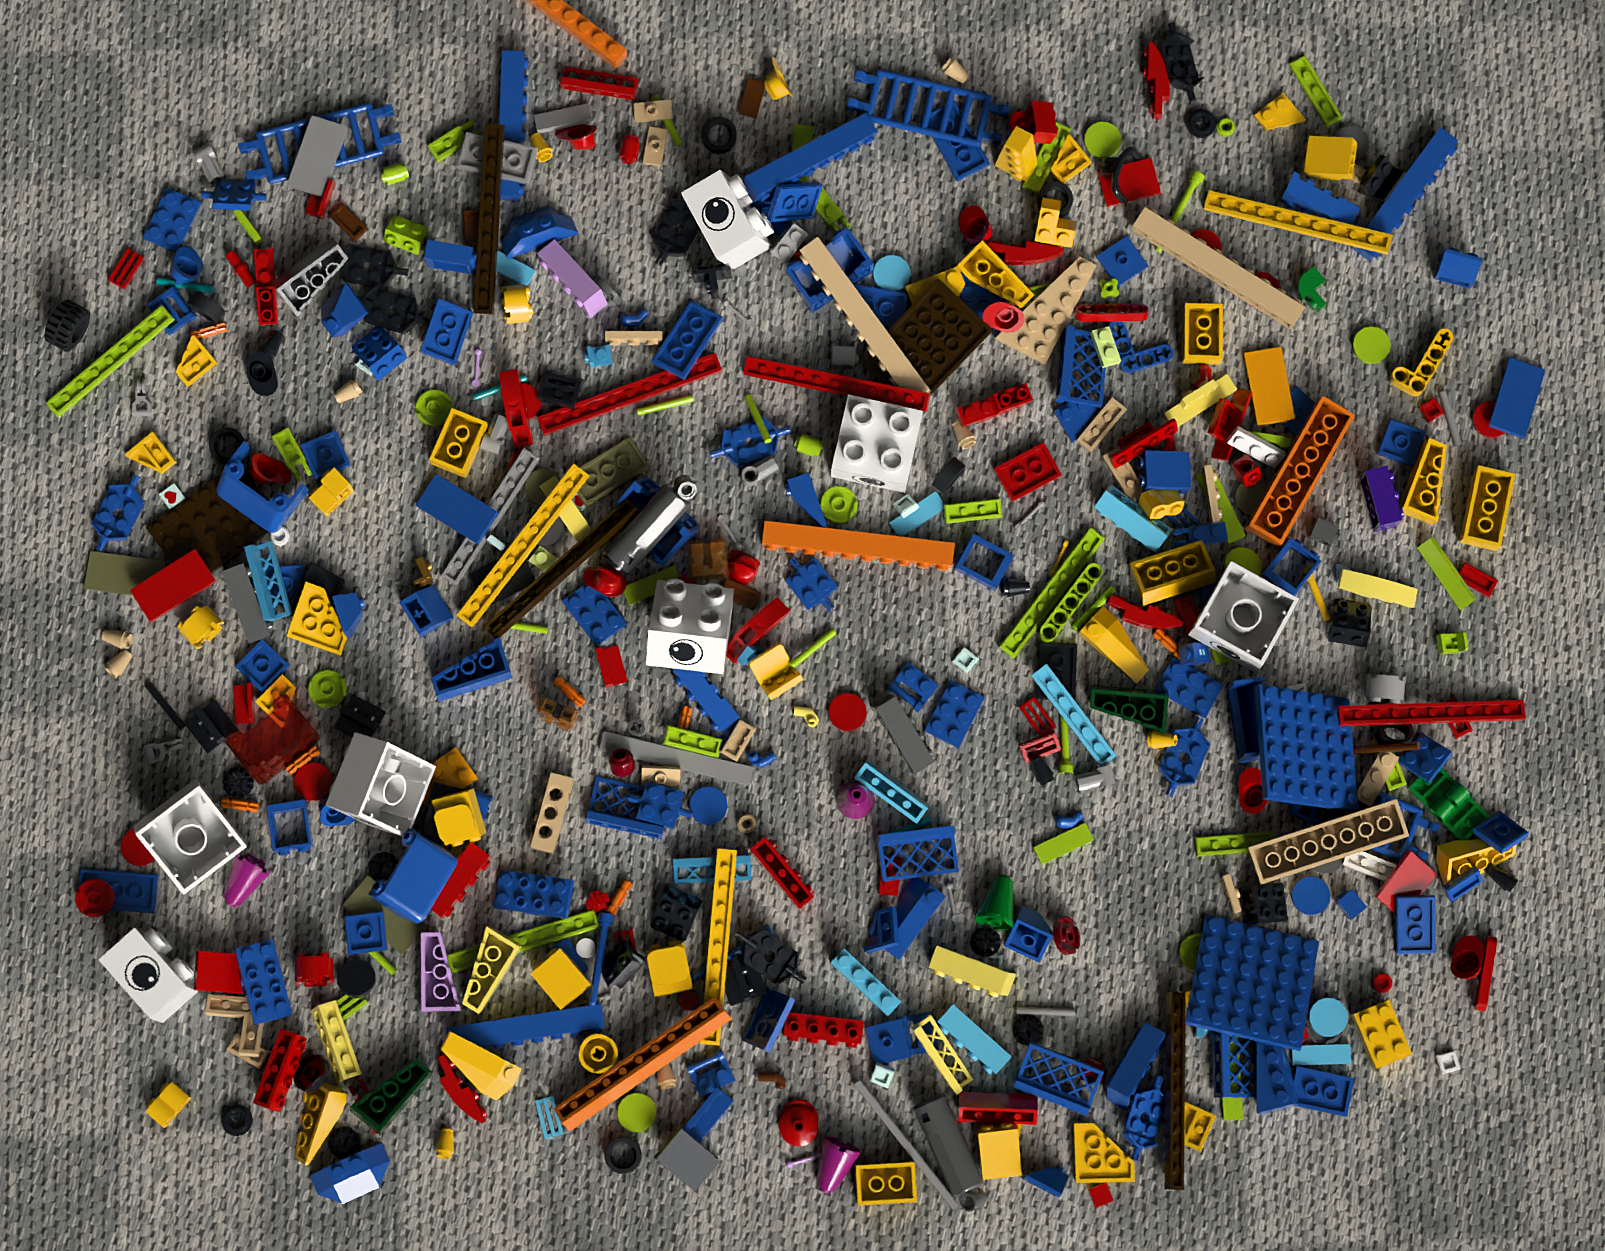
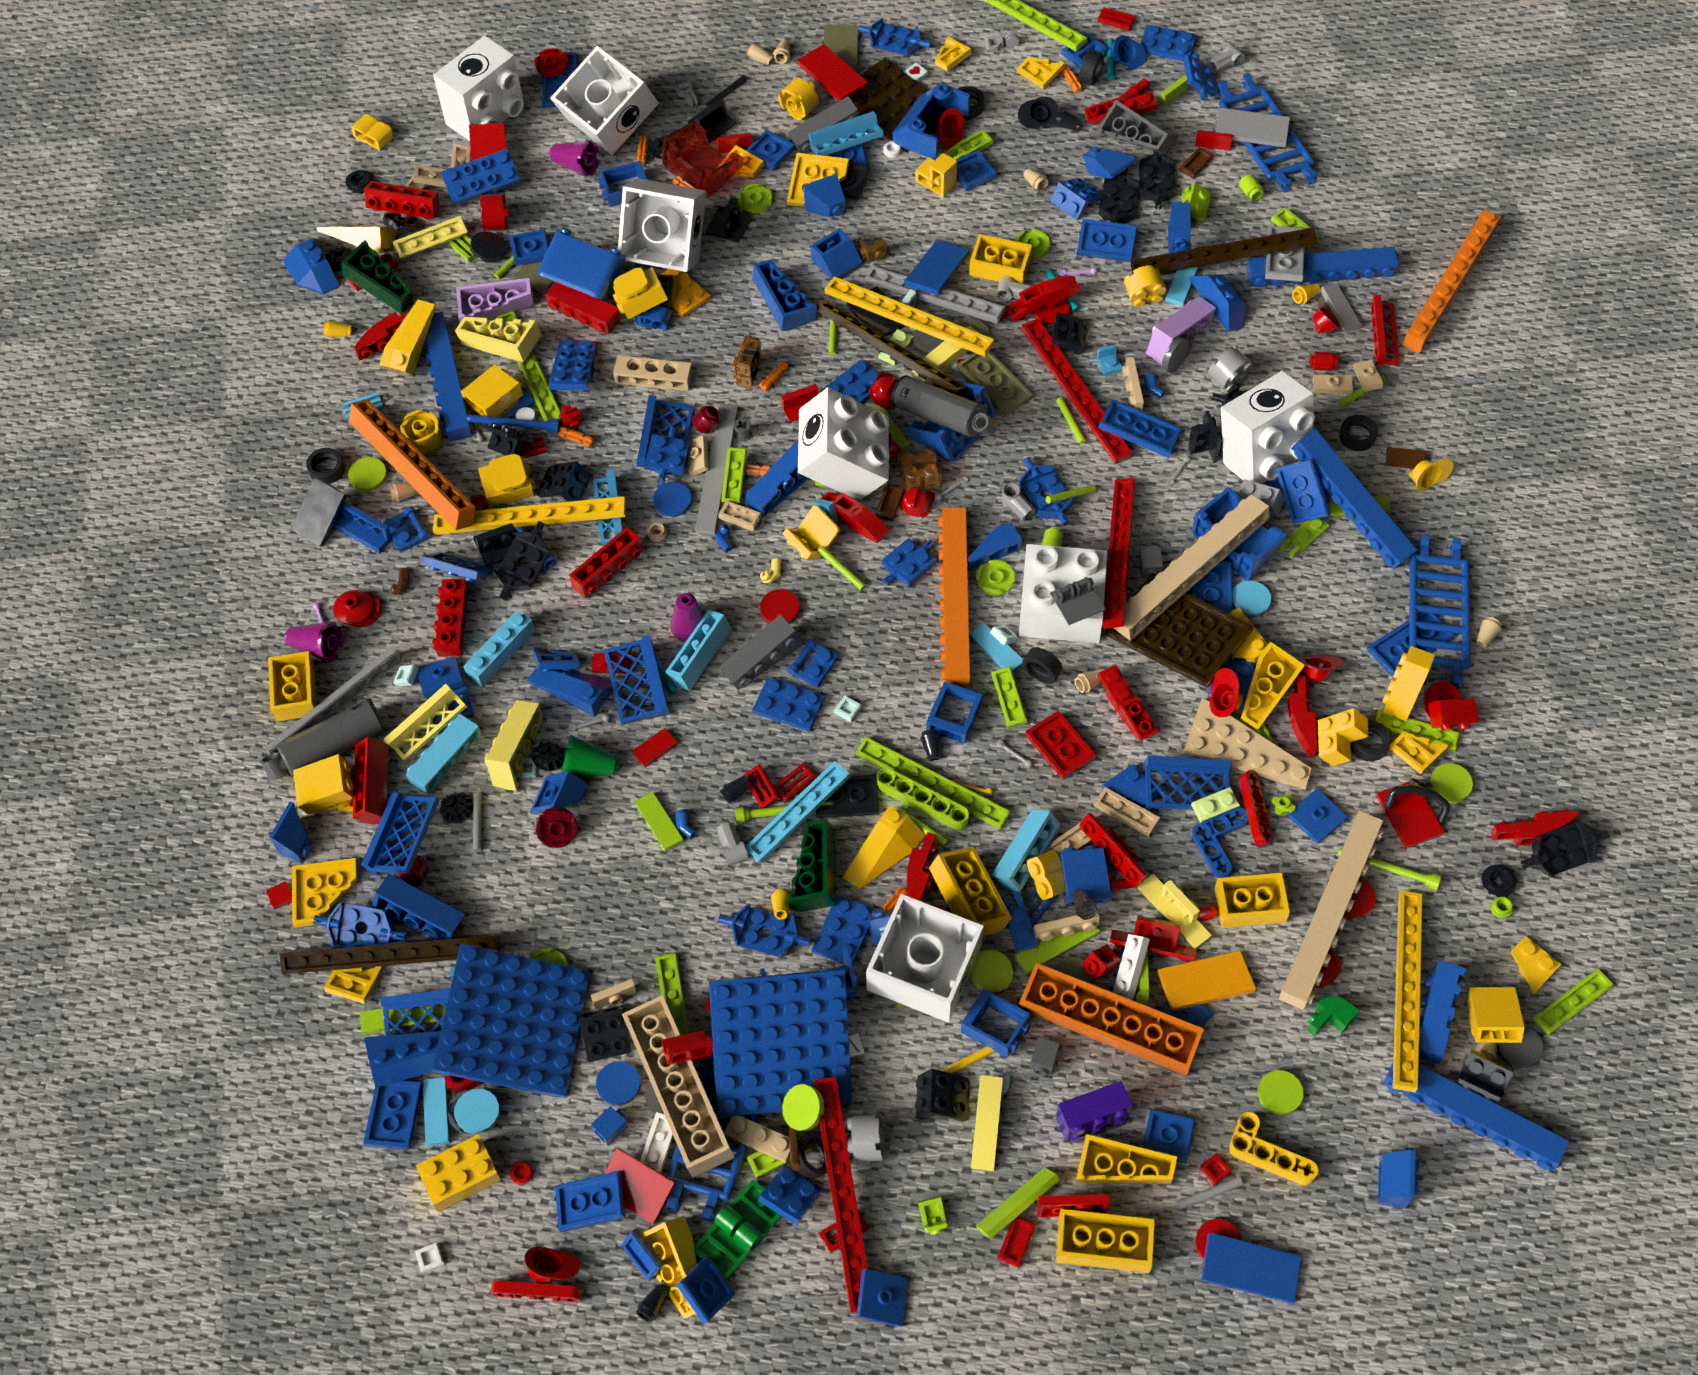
camera: 90 degrees right, 20 degrees down
(632, 240) = (1230, 368): none -> light grey brick
(910, 429) = (1078, 600): none -> dark grey hinge
(986, 842) = (654, 747): none -> red tile
(1202, 475) = (1084, 905): none -> clear smoke cone
(1302, 828) = (687, 1047): none -> red panel
(1361, 736) = (803, 1107): none -> lime tile
(1458, 528) = (1050, 1205): none -> red tile
(1516, 692) = (882, 1298): none -> blue plate

